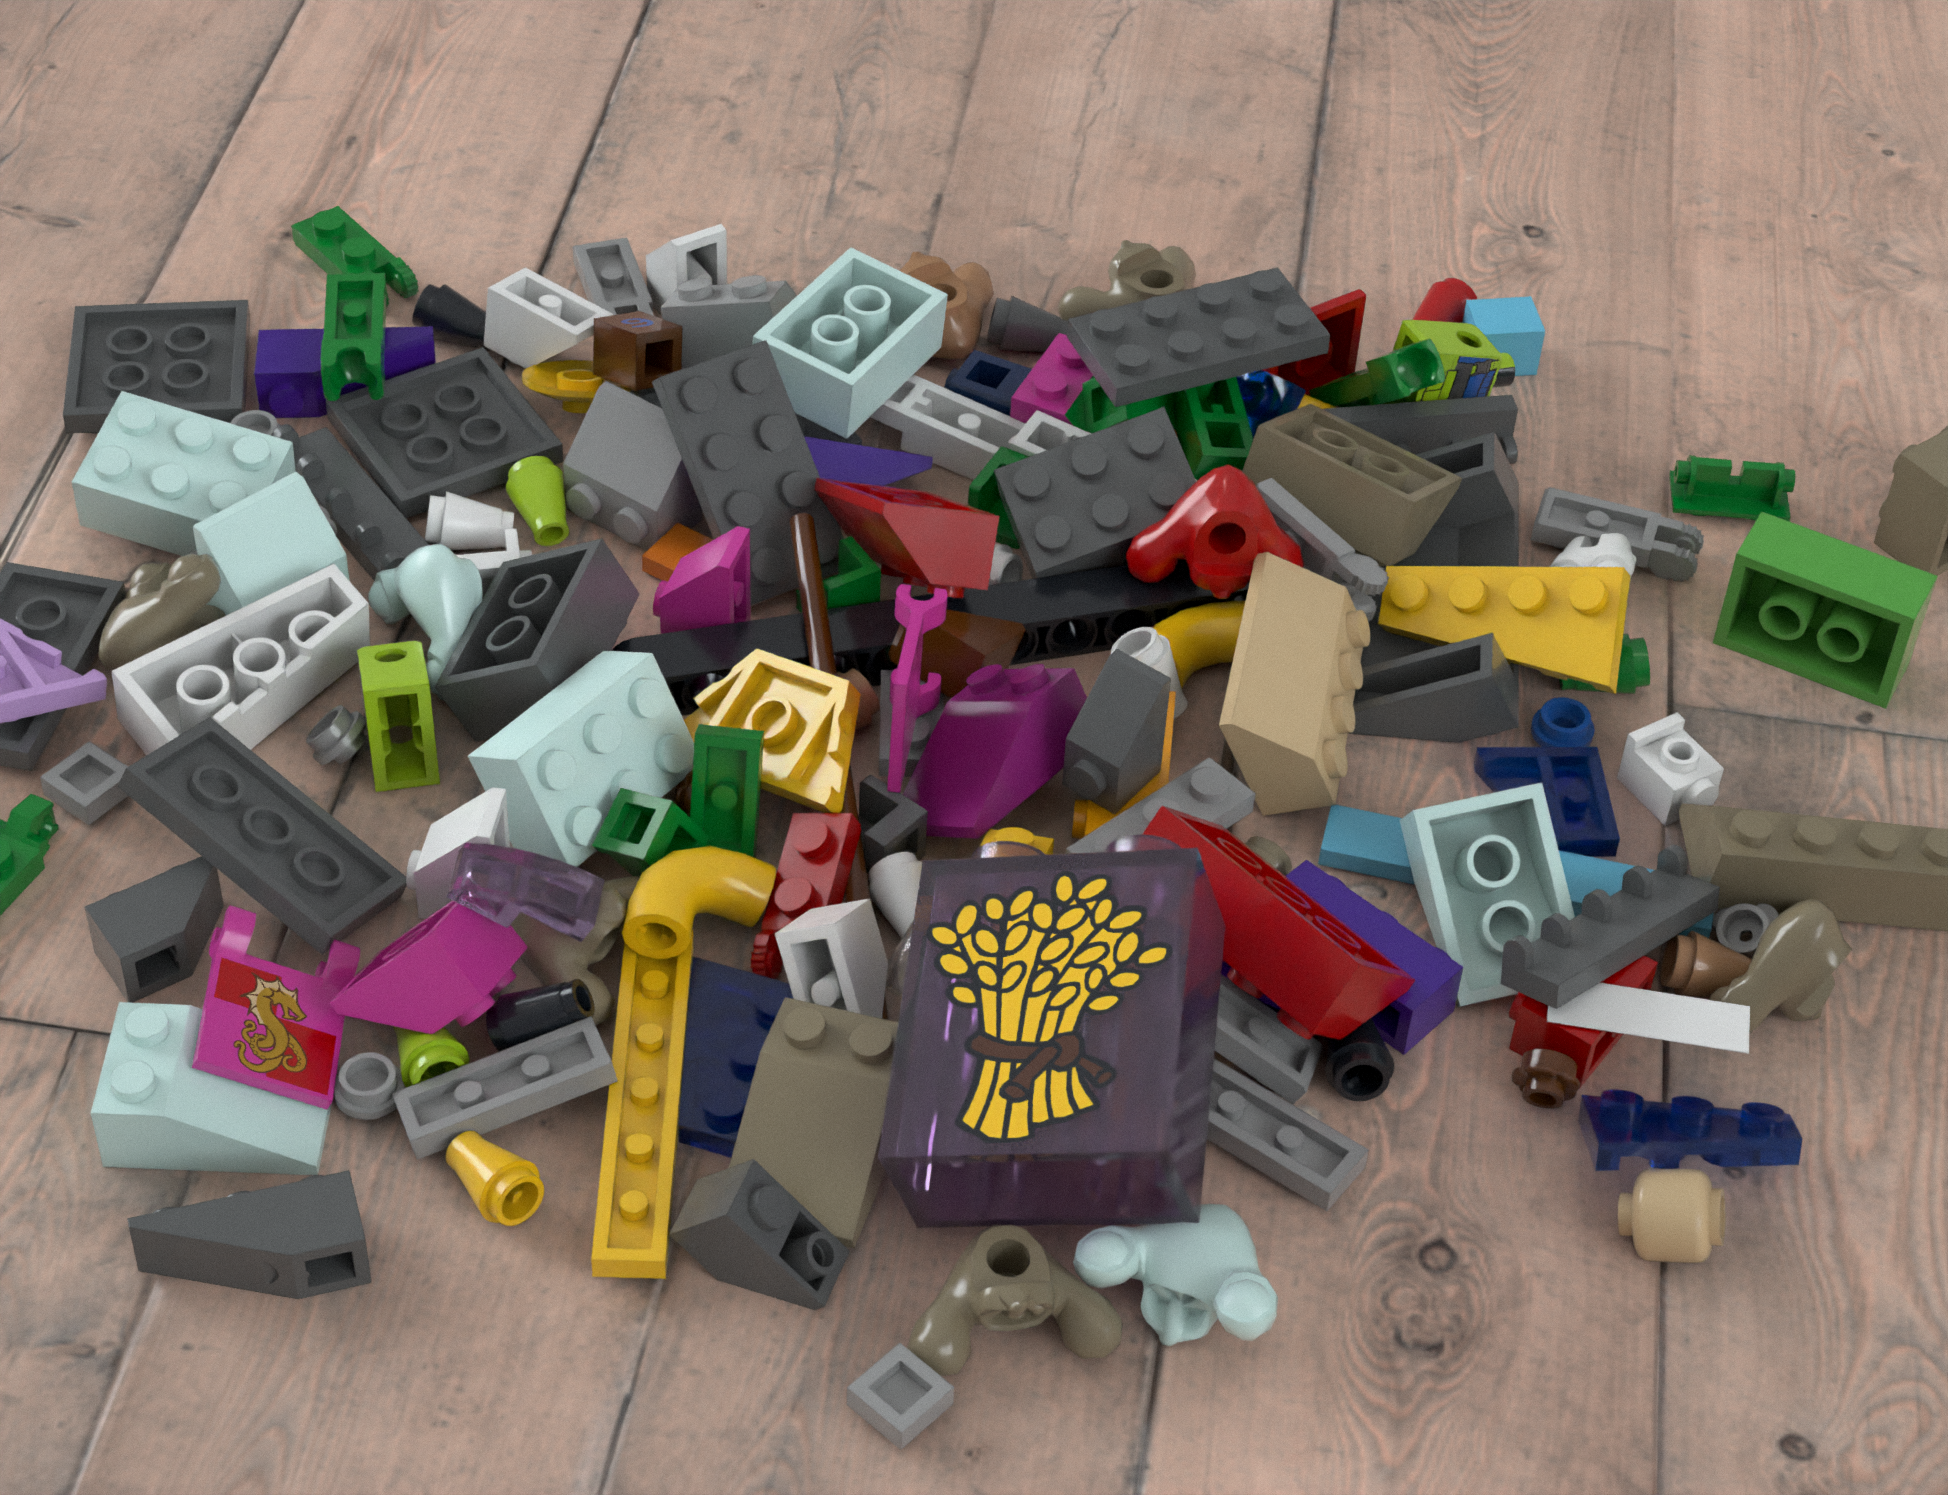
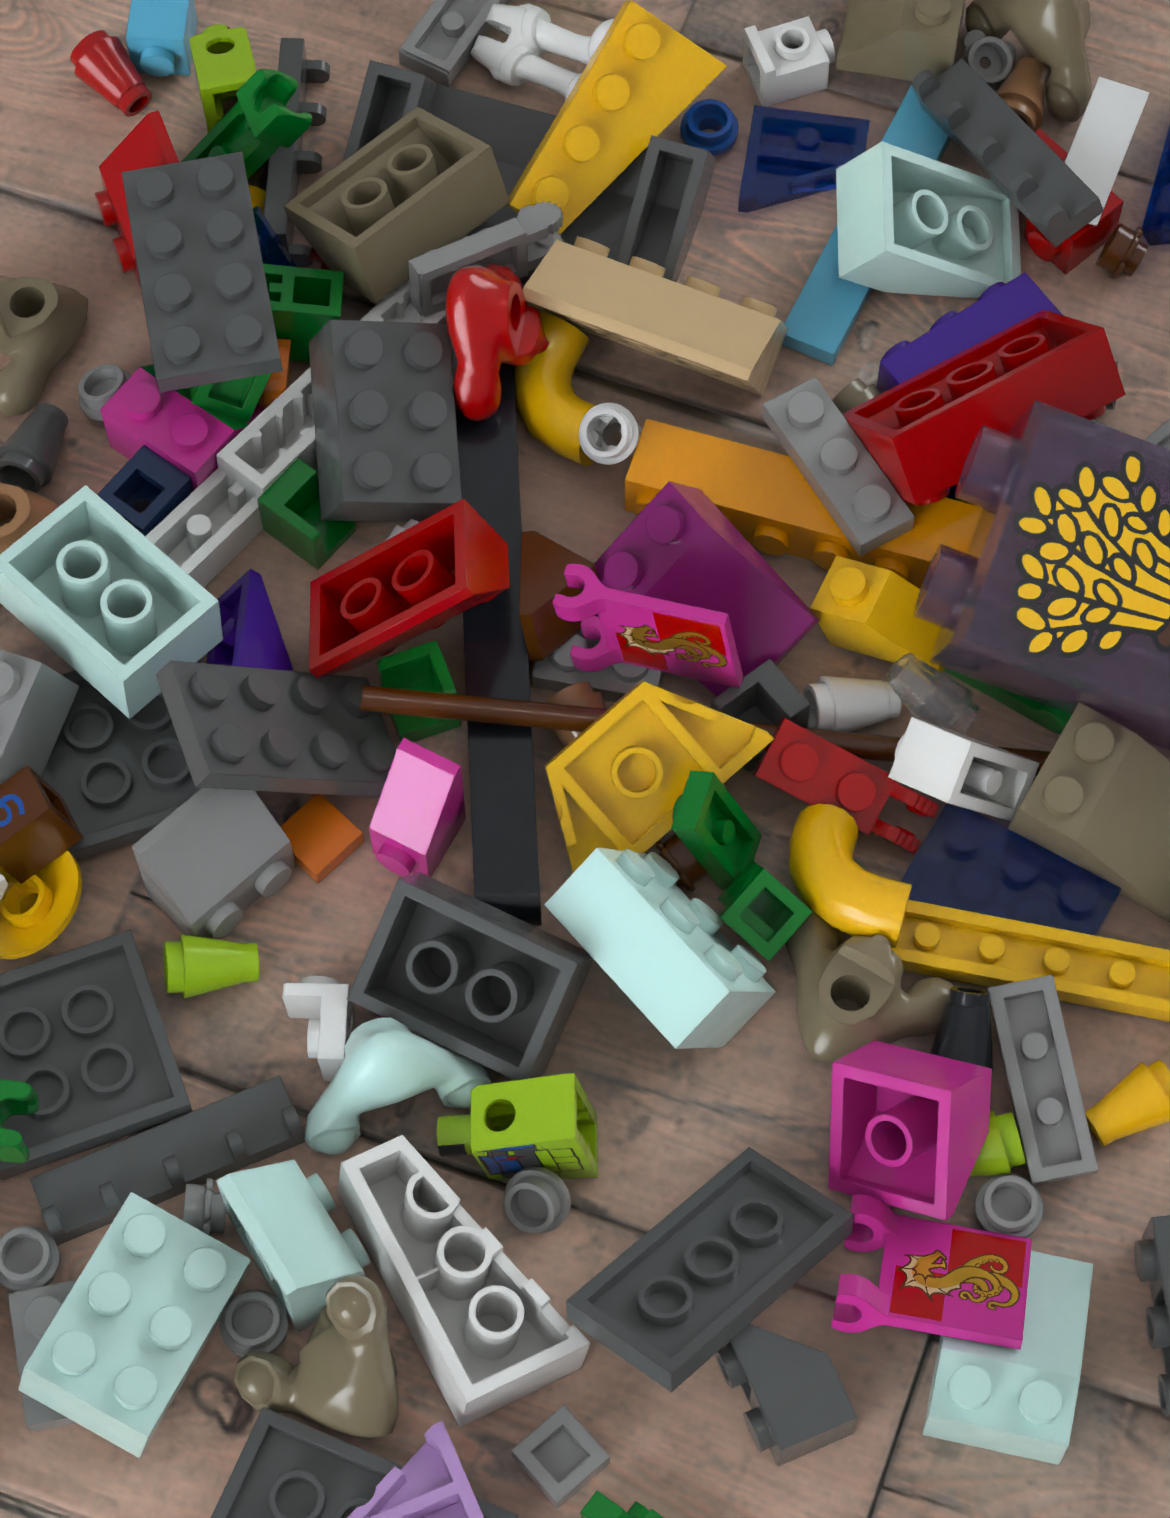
camera: 75 degrees left, 20 degrees up
(431, 870) = (762, 1083): white slope -> none
(466, 523) = (230, 1046): white cone -> none
(510, 881) = (863, 1013): clear purple slope -> none
(1118, 733) = (752, 466): dark grey slope -> none

